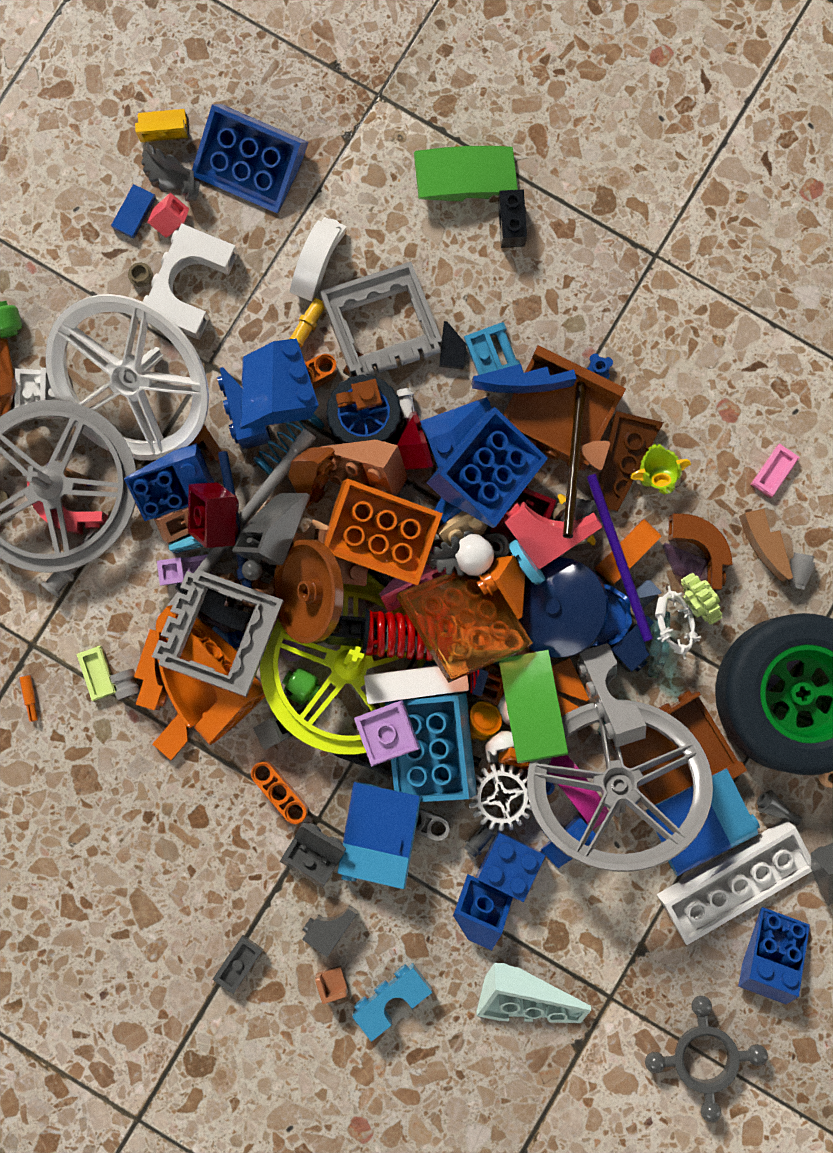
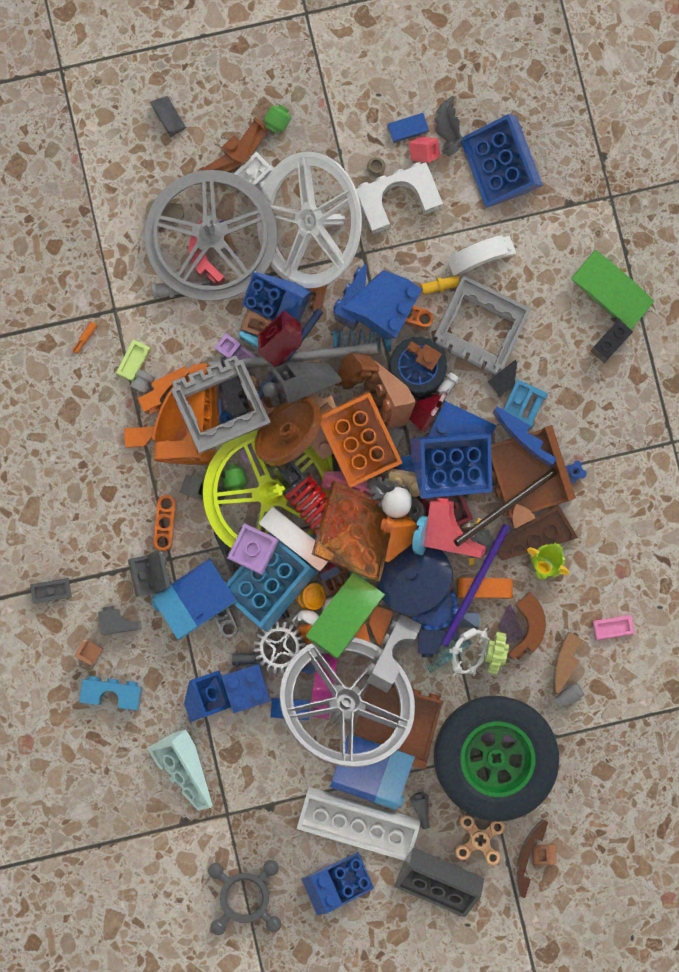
camera: 50 degrees right, 0 degrees up
(161, 125) = (472, 95): yellow panel -> none

